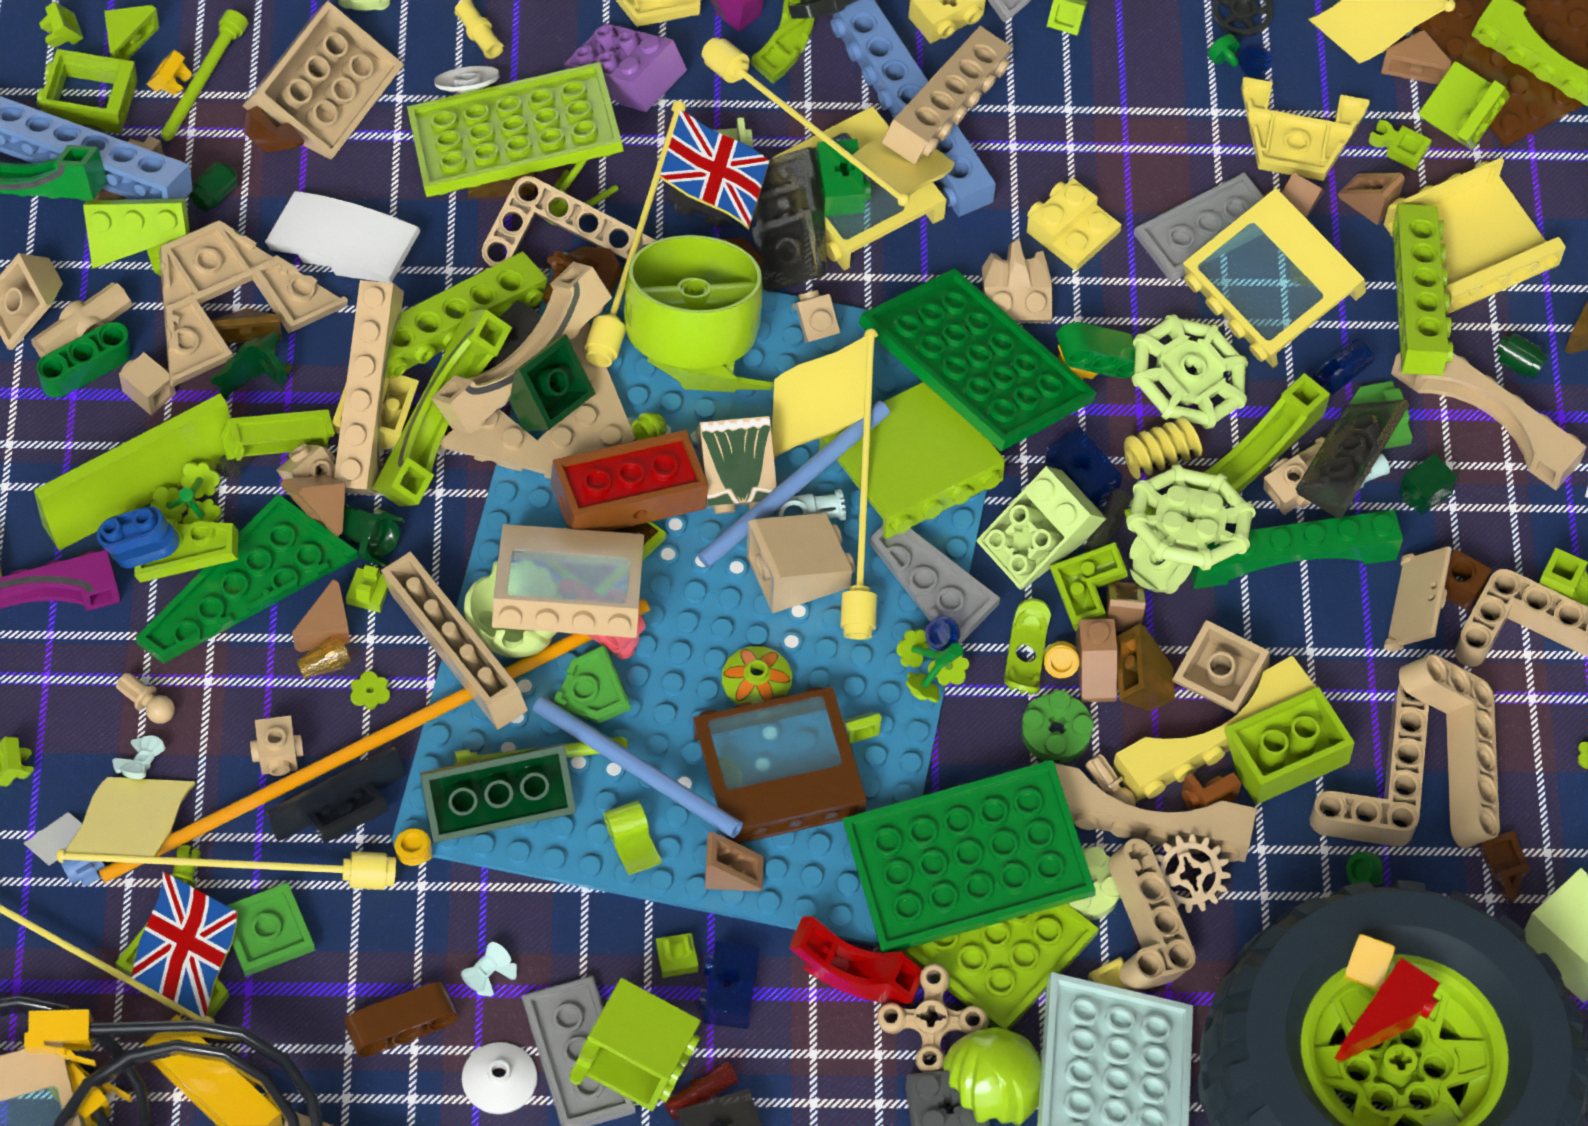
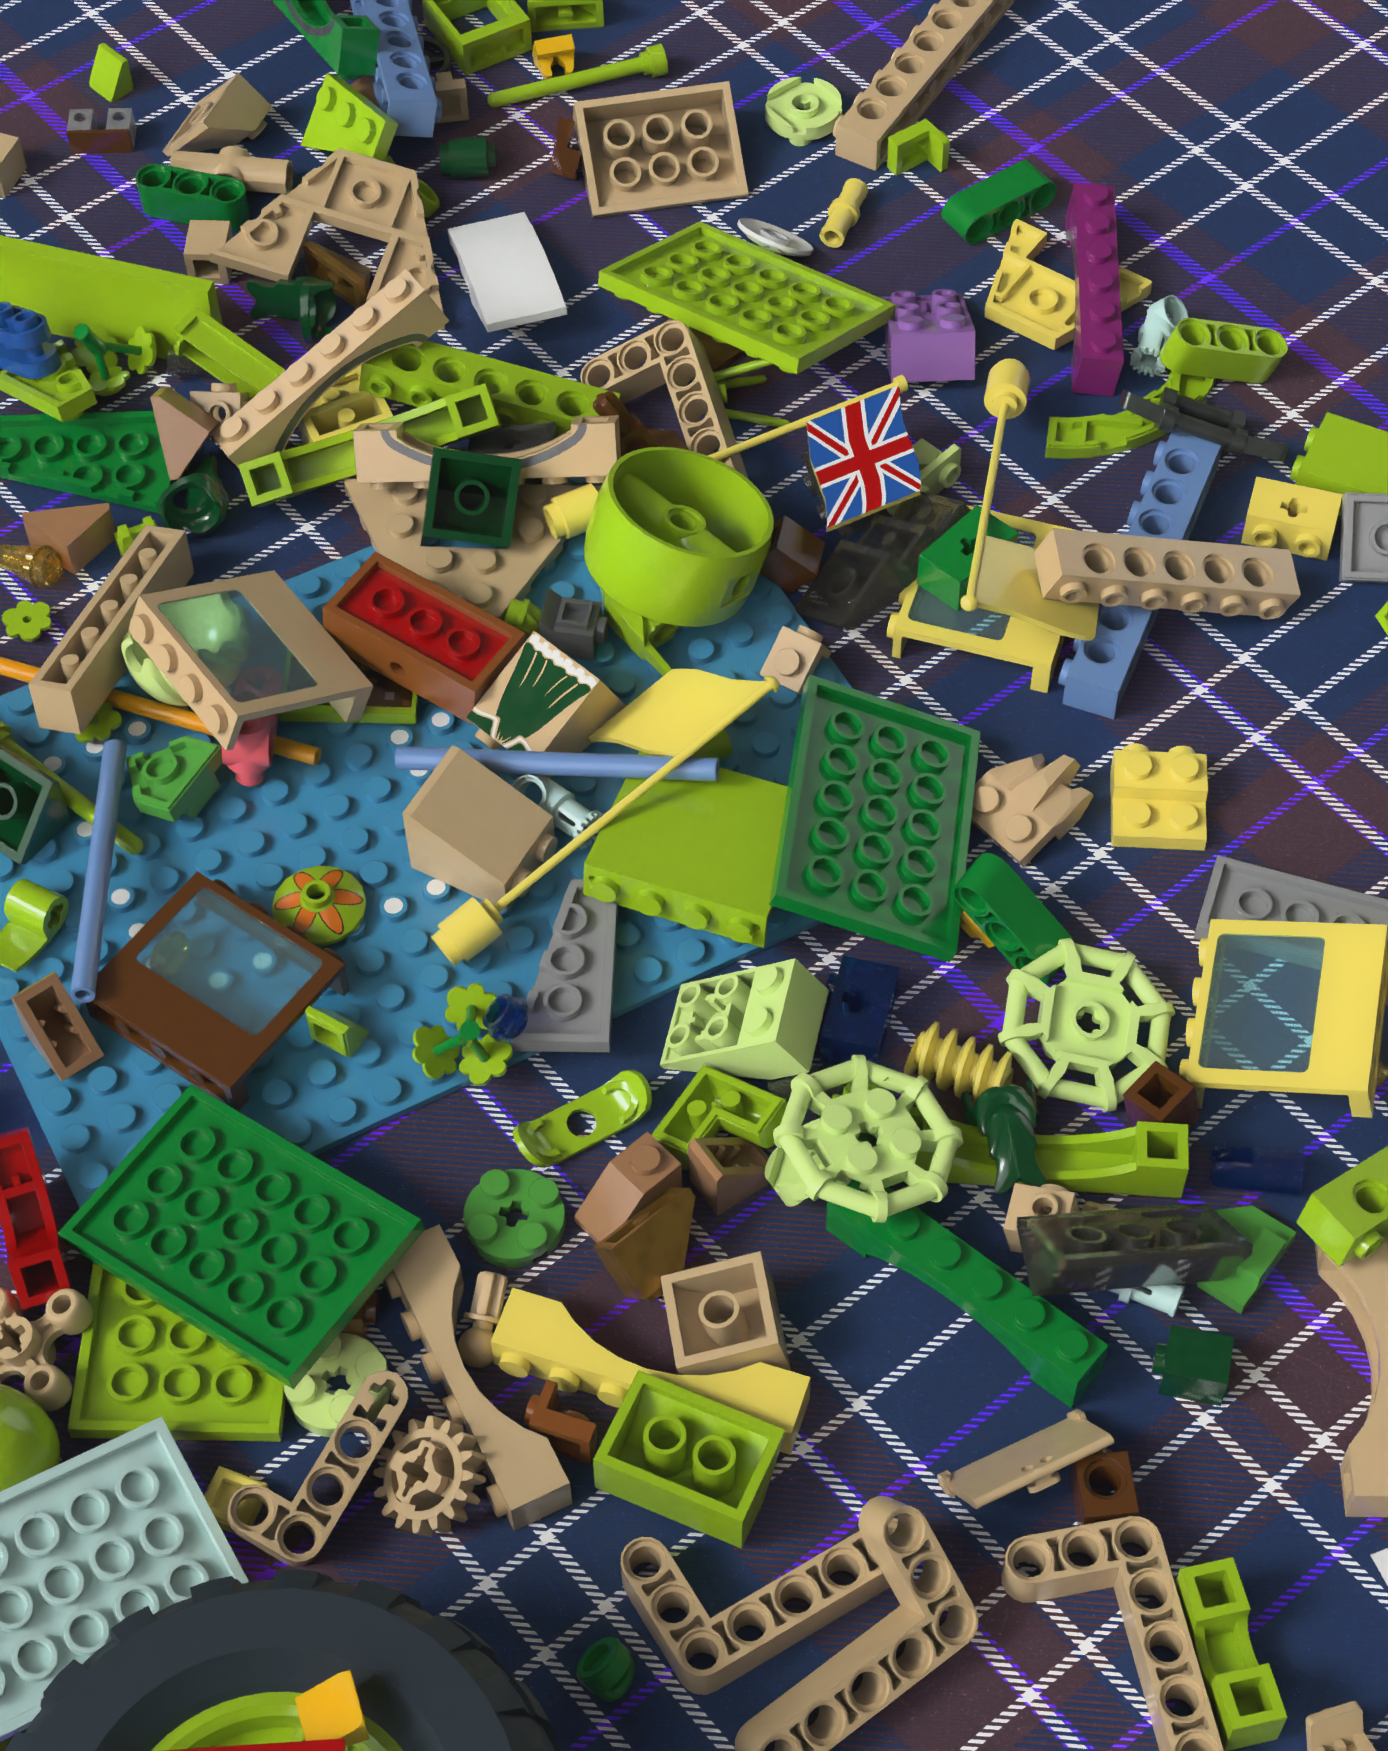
camera: 55 degrees right, 5 degrees down
(684, 404) = (573, 625): none -> dark grey window
(1061, 659) = (593, 1156): yellow tile -> none
(1223, 451) = (1007, 1121): none -> dark green hair
(1272, 376) = (1161, 1098): none -> reddish brown brick

